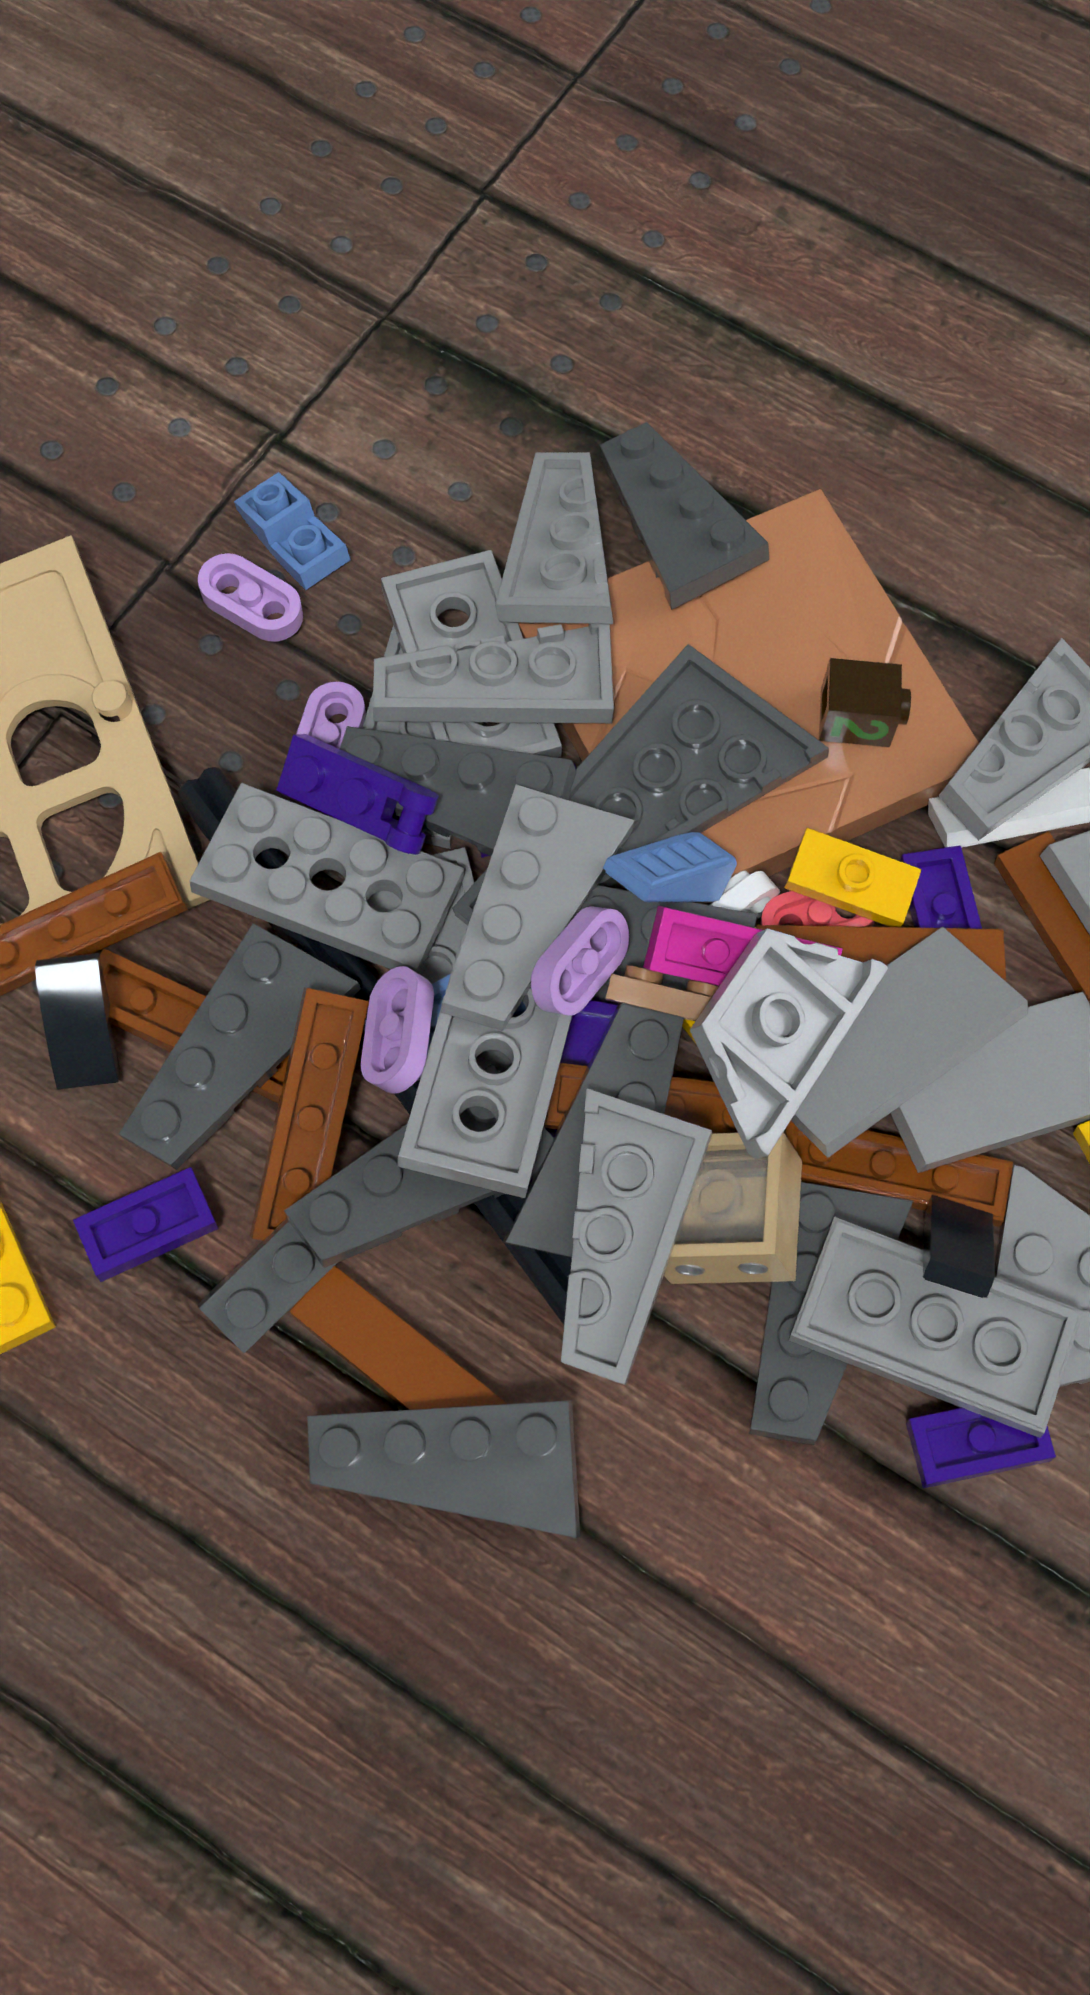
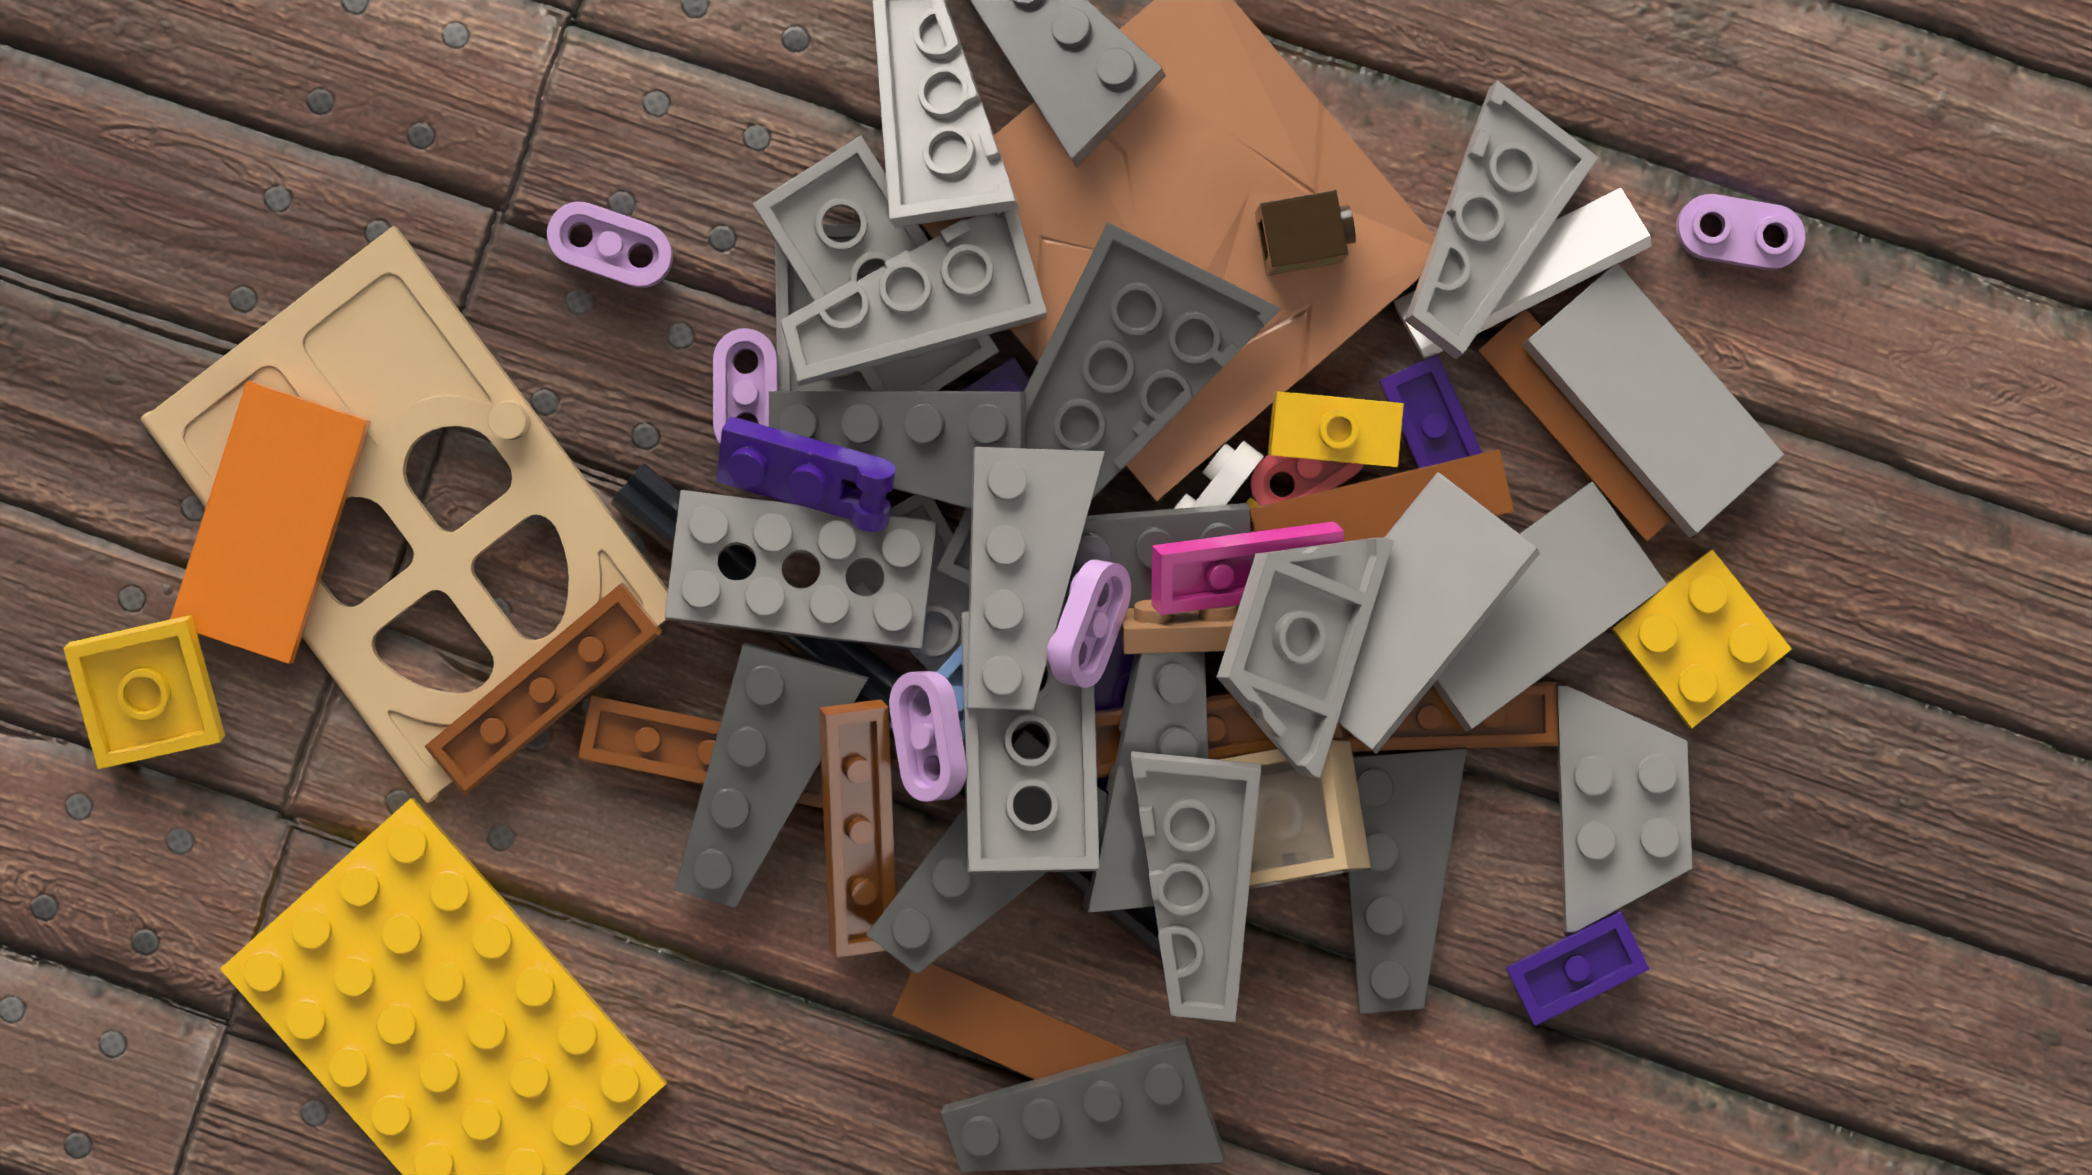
camera: 15 degrees left, 20 degrees up
(77, 1021) = (593, 784): black slope -> none
(145, 1224) = (725, 966): dark purple plate -> none
(263, 1287) = (859, 1001): dark grey plate -> none
(291, 531) = (627, 145): medium blue slope -> none
(674, 869) = (1159, 484): medium blue slope -> none
(958, 1247) = (1519, 795): black tile -> none
(979, 1353) = (1513, 875): light grey tile -> none

